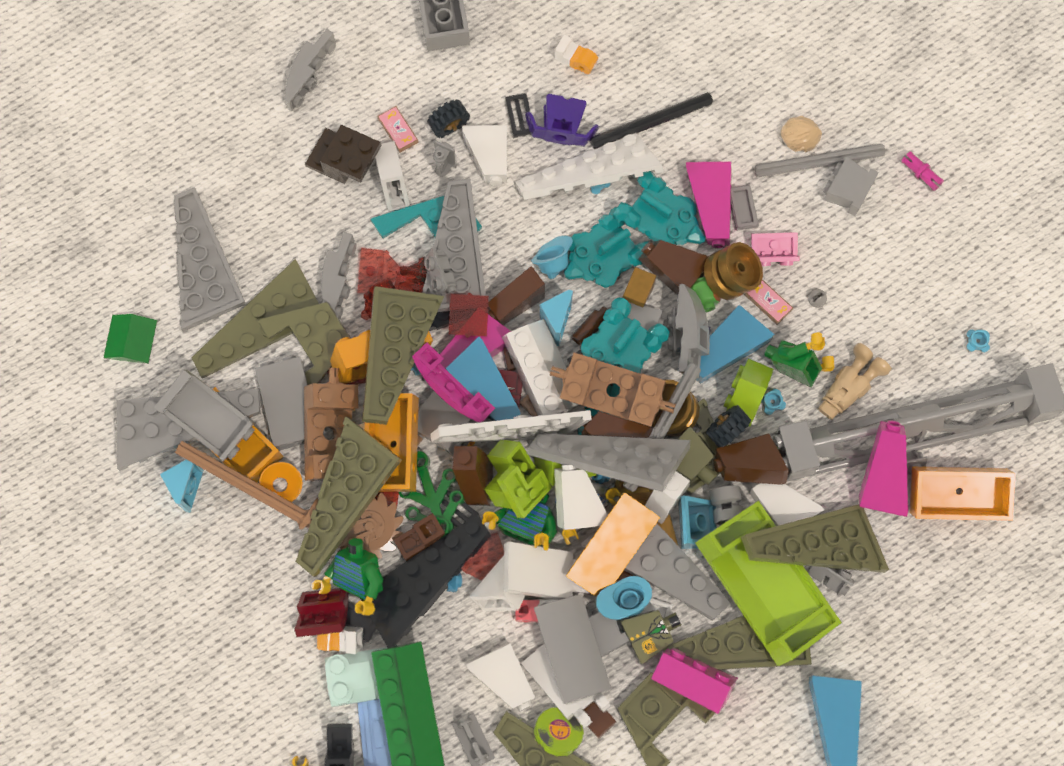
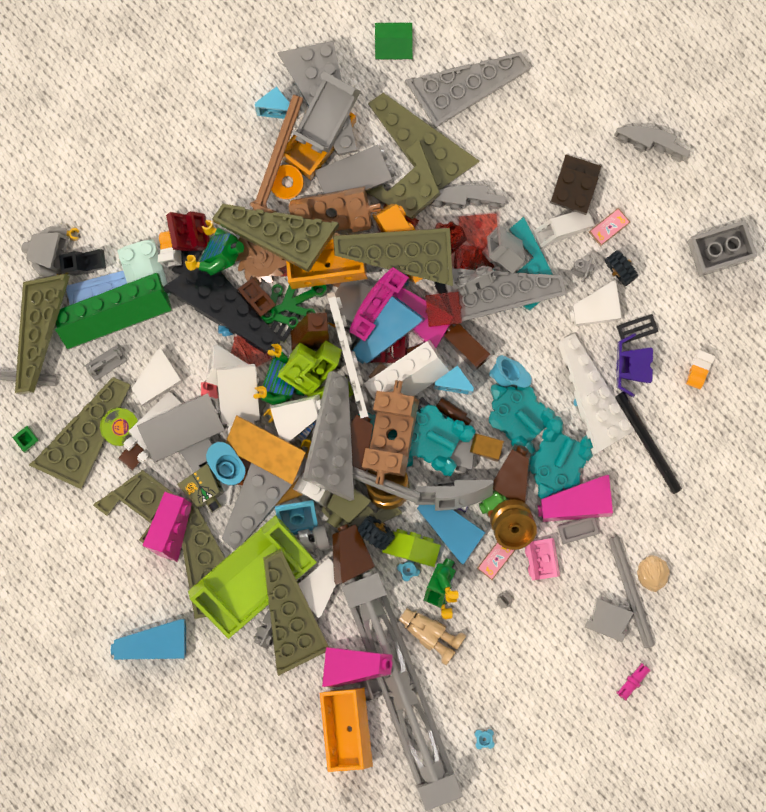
camera: 80 degrees right, 10 degrees up
(407, 237) = (505, 249): none -> light grey hips

